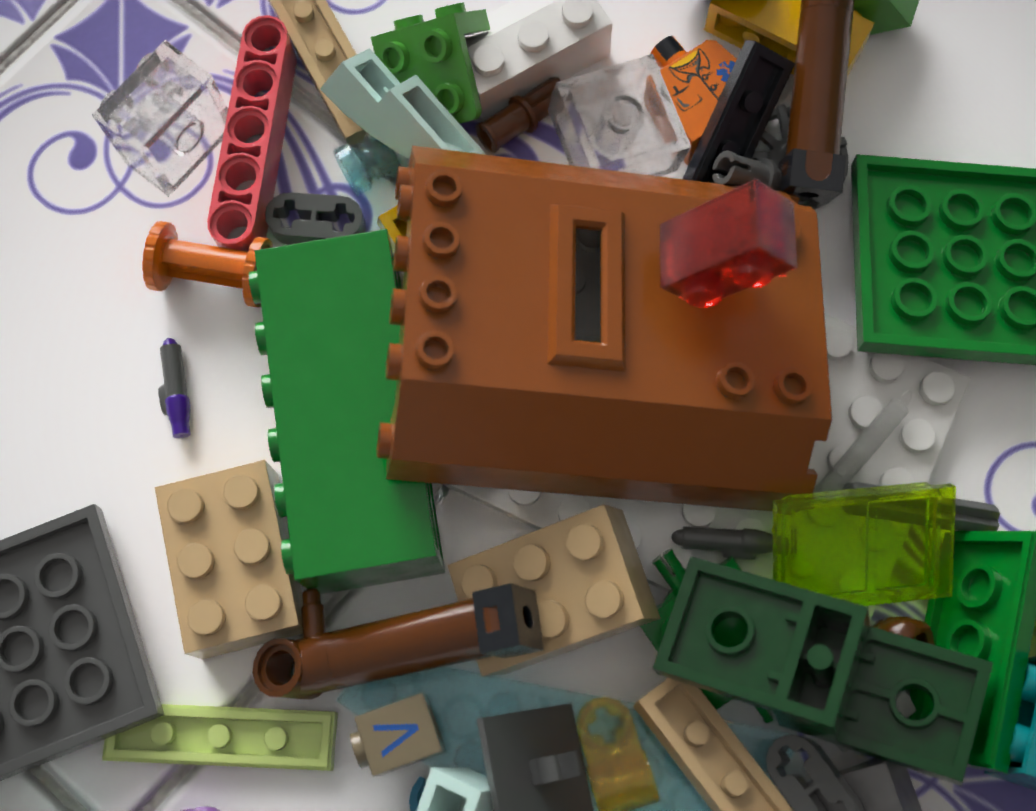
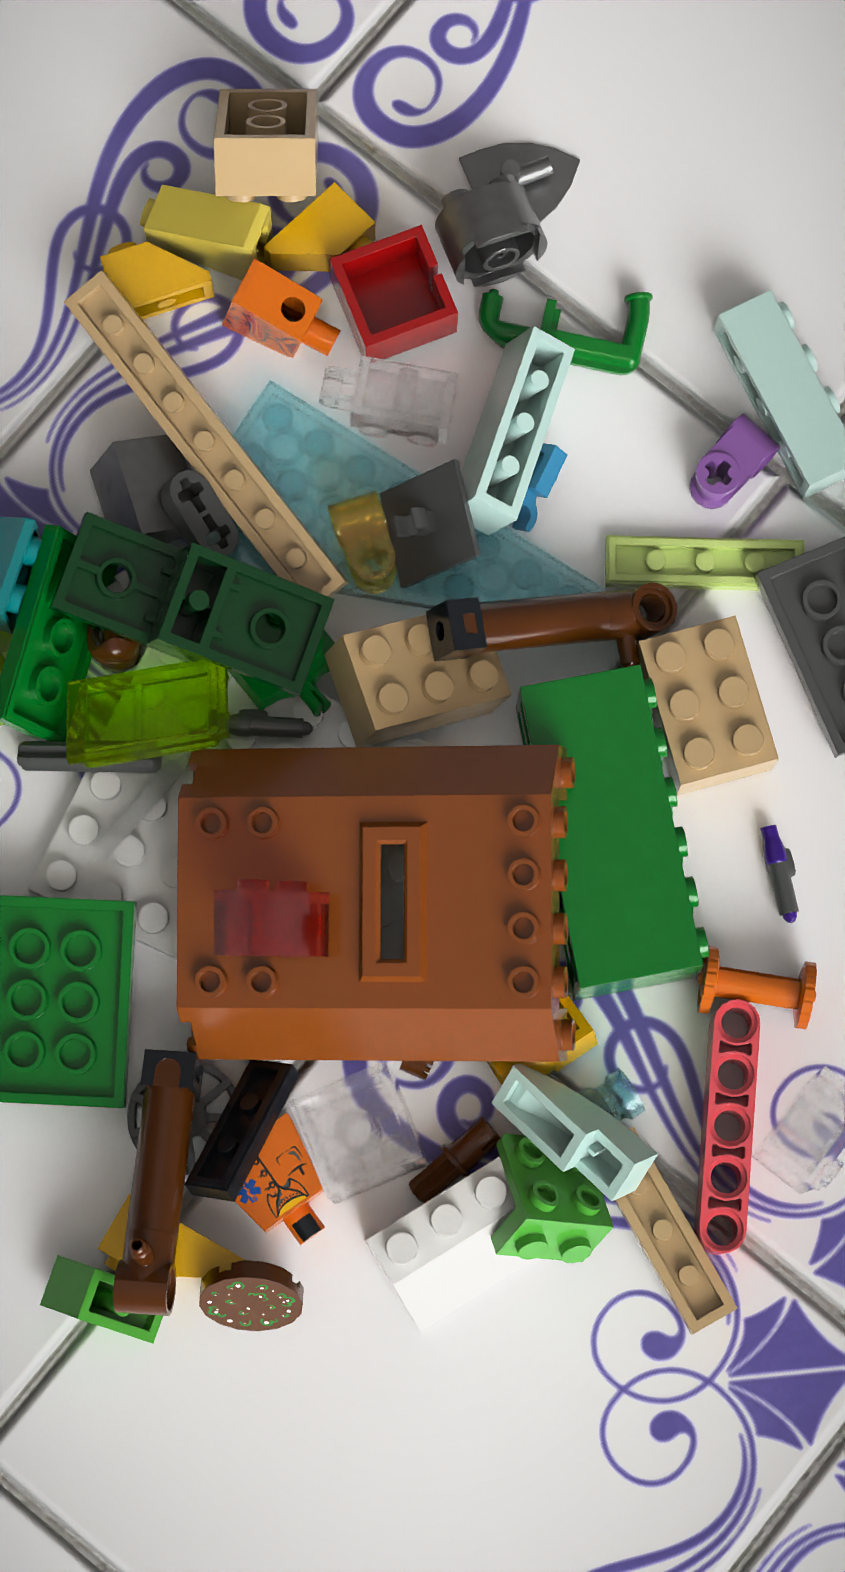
camera: 170 degrees right, 5 degrees up
(315, 215) = (659, 1032): dark grey beam -> none
(397, 735) = (547, 553): dark tan brick -> none
(743, 170) = (223, 1078): dark grey pin -> none

